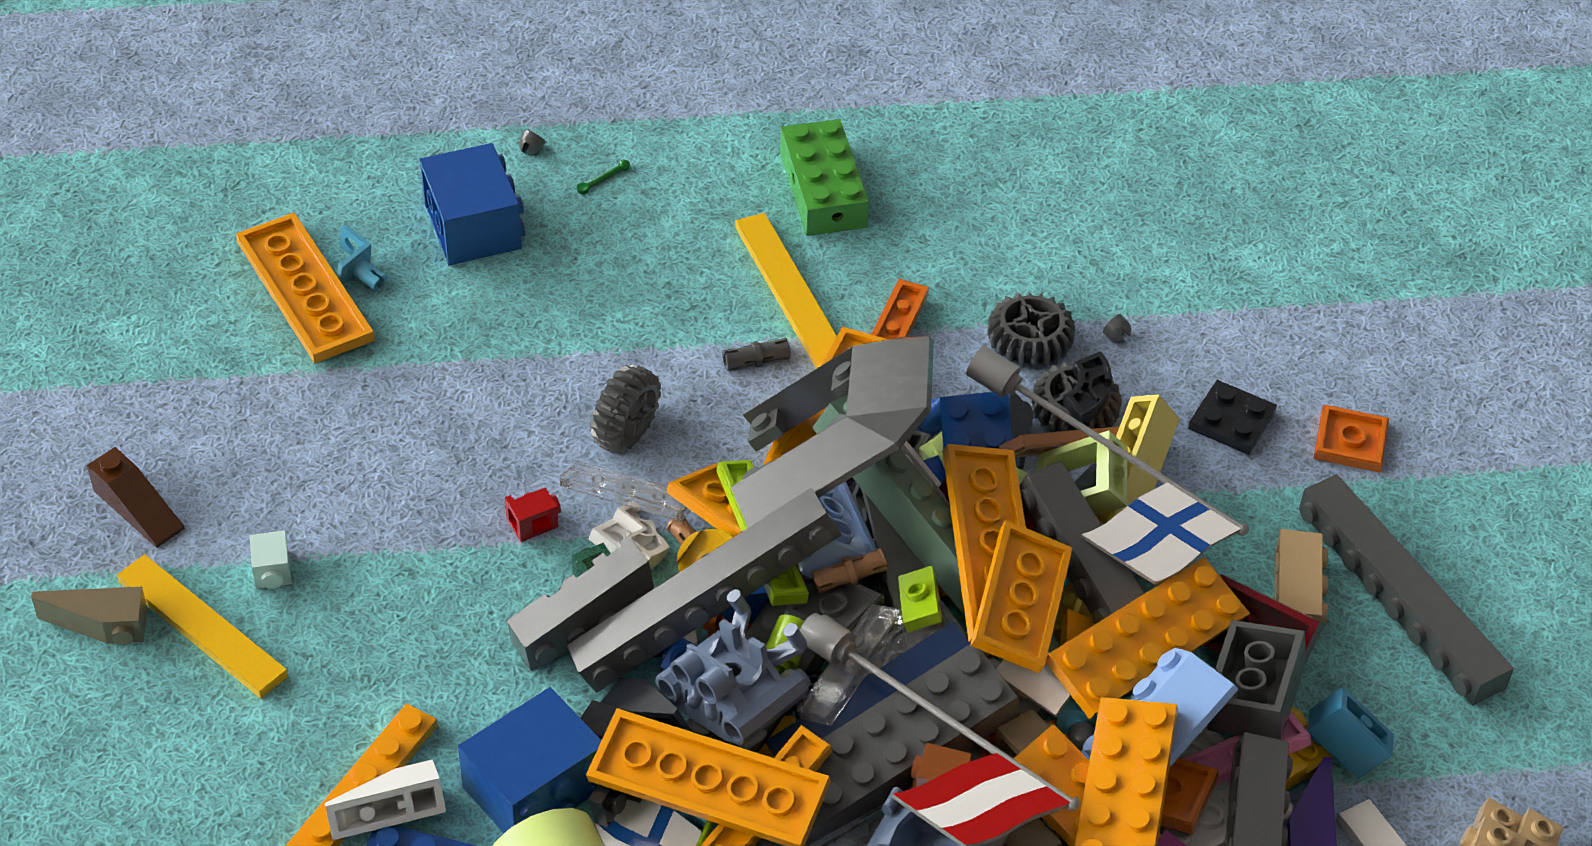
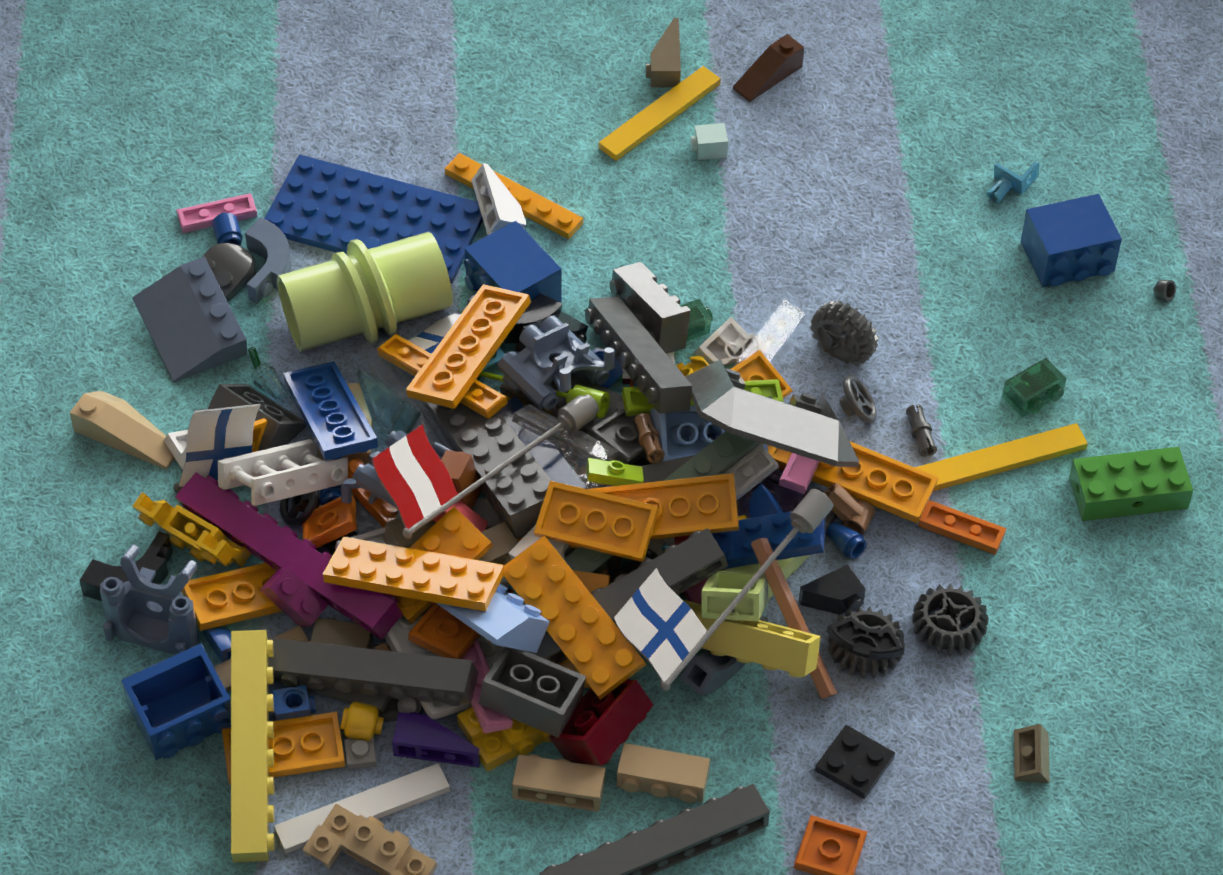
camera: 95 degrees right, 5 degrees up
(305, 287) = (976, 153): light orange plate -> none
(532, 513) = (749, 284): red brick -> none
(583, 188) = (1116, 327): green hinge -> none
(689, 251) = (1034, 387): none -> clear green brick
(723, 406) = (856, 399): none -> dark grey piece
(1116, 327) = (956, 687): dark grey hinge -> none
(1188, 274) = (1031, 754): none -> dark tan slope
(1337, 664) = (558, 782): none -> tan brick
(1350, 733) = (496, 767): dark azure brick -> none

